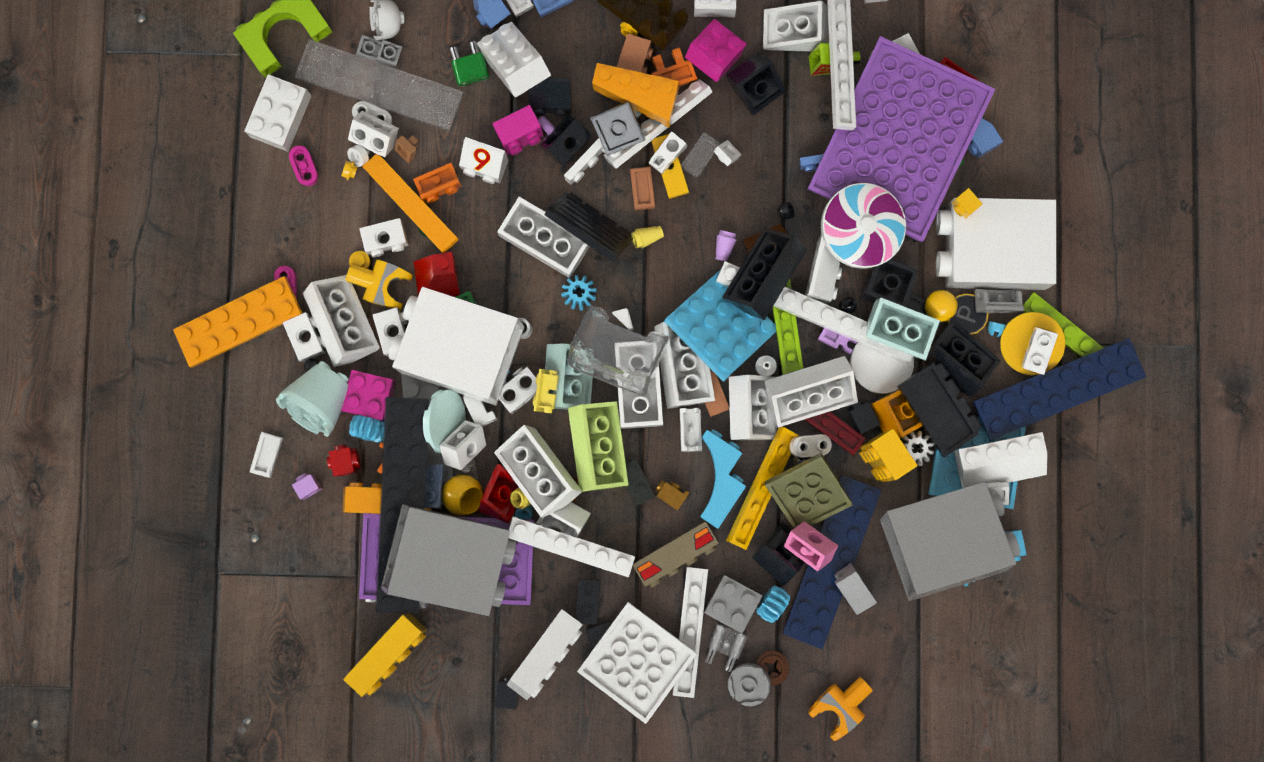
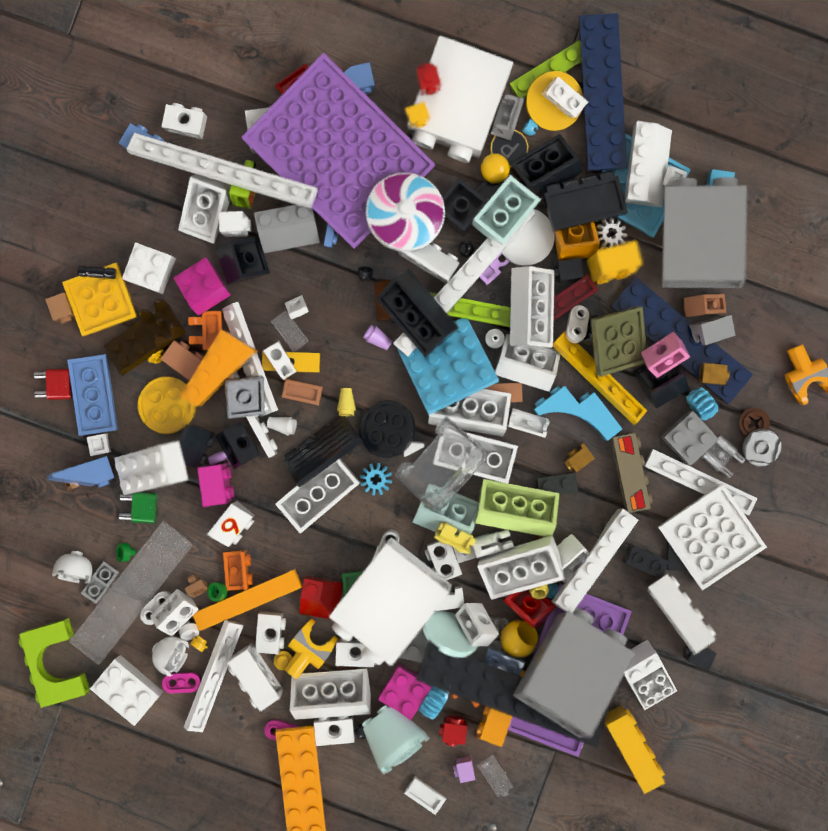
camera: 75 degrees left, 5 degrees up
(309, 521) = (495, 776): none -> clear hinge
(320, 195) = (213, 676): none -> white plate
(328, 144) = (169, 655): none -> white cylinder
(334, 236) = (255, 677): none -> white brick
(409, 170) = (217, 591): none -> green tile
(418, 64) = (124, 552): none -> green tile
(467, 644) = (648, 676): none -> white slope
(546, 427) = (486, 545): none -> white plate
(578, 53) = (163, 407): none -> yellow tile
(602, 179) = (284, 425): none -> white cone
(634, 286) = (387, 429): none -> black tile
(790, 61) = (234, 224): none -> white brick
(804, 116) = (286, 228): none -> light grey slope
(808, 604) = (713, 374): none -> pearl gold brick
(877, 573) = (704, 305): none -> nougat slope
(1007, 202) = (428, 79): none -> red brick

